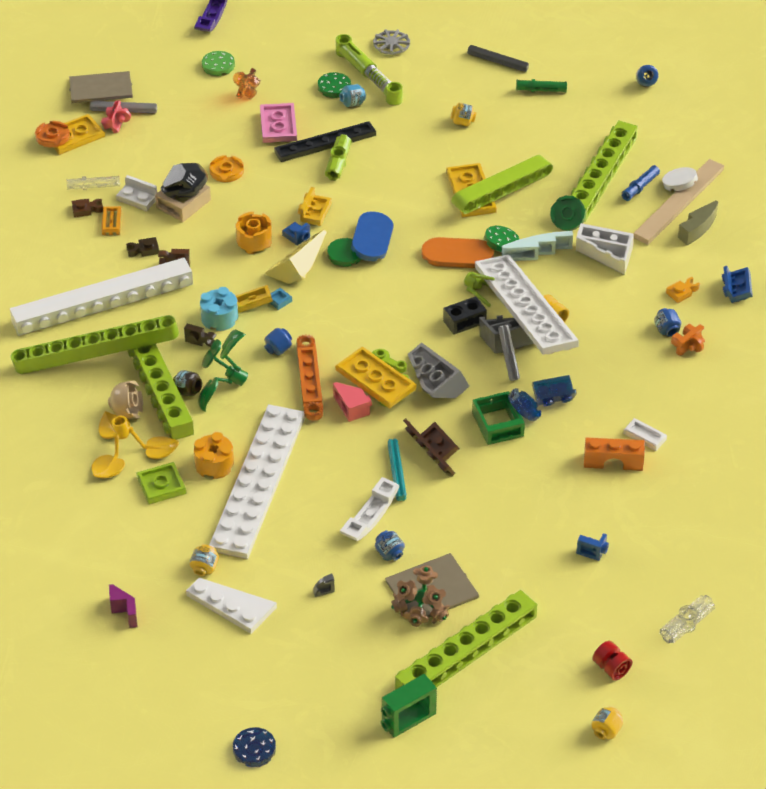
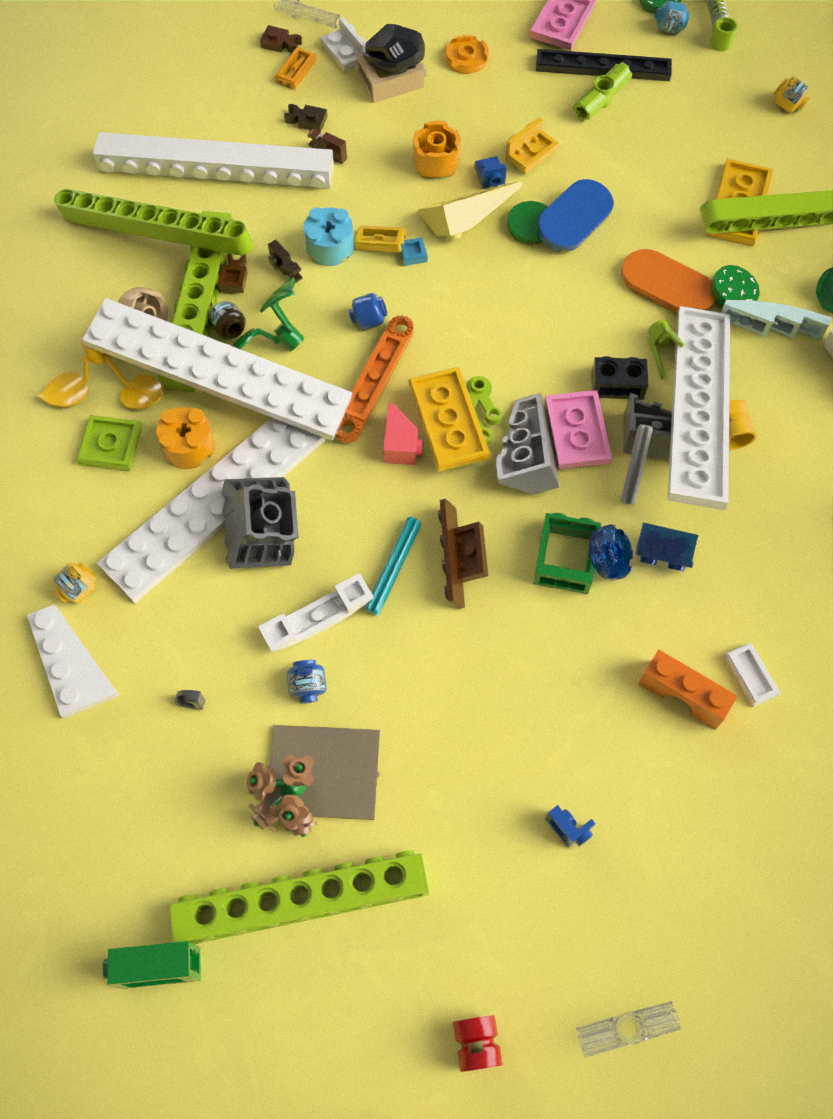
camera: 30 degrees right, 20 degrees up
(170, 356) = (234, 275): none -> reddish brown plate
(211, 405) = (218, 369): none -> white plate
(299, 478) = (259, 522): none -> dark grey slope
(459, 351) = (578, 429): none -> bright pink plate

